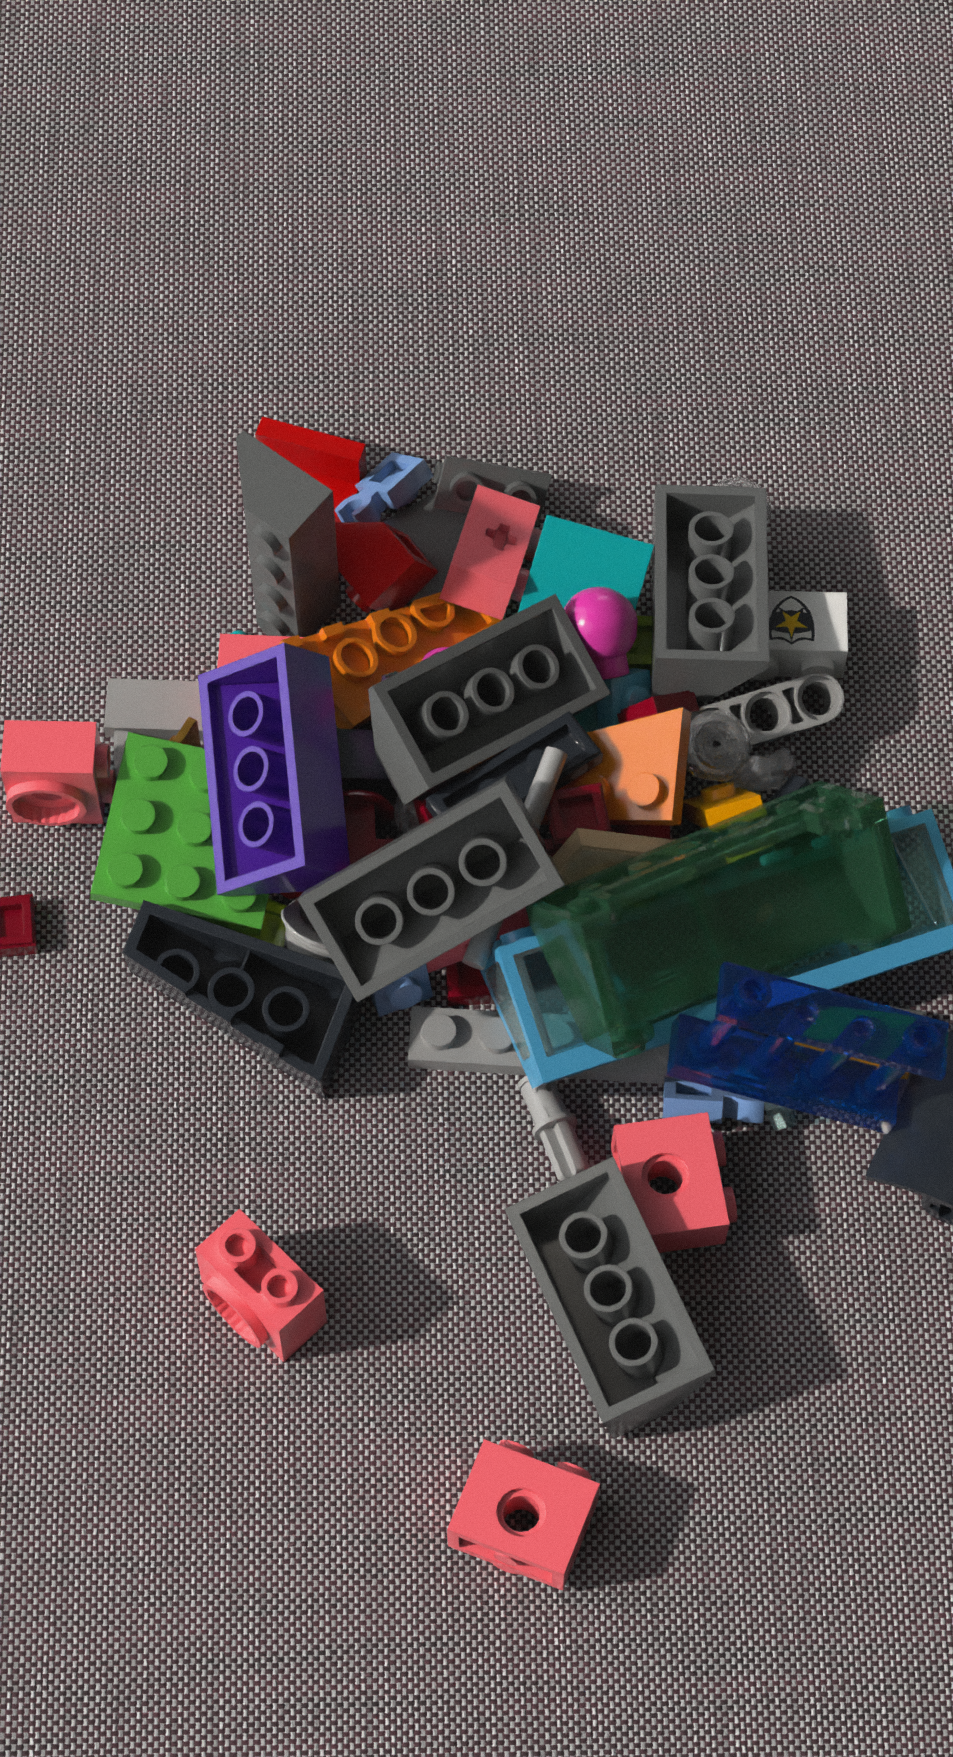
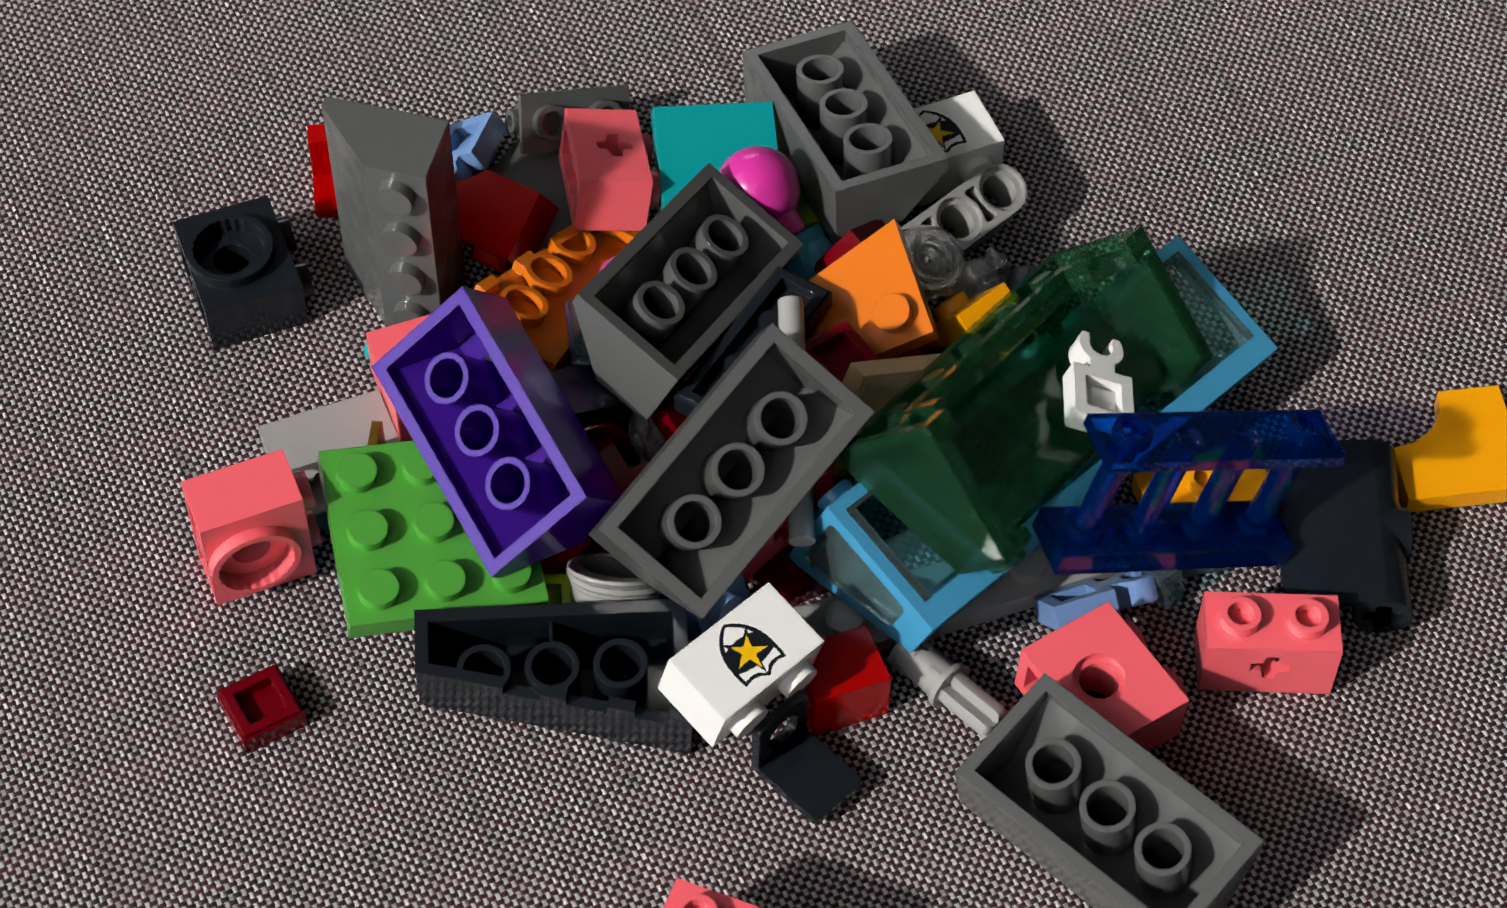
camera: 25 degrees left, 10 degrees down
(174, 553) = (244, 271): none -> black brick
(375, 1053) = (741, 666): none -> white brick
(402, 1145) = (801, 764): none -> black bracket
(463, 1087) = (848, 682): none -> red brick
(783, 927) = (1092, 383): none -> white plate
(832, 1196) = (1268, 642): none -> coral brick

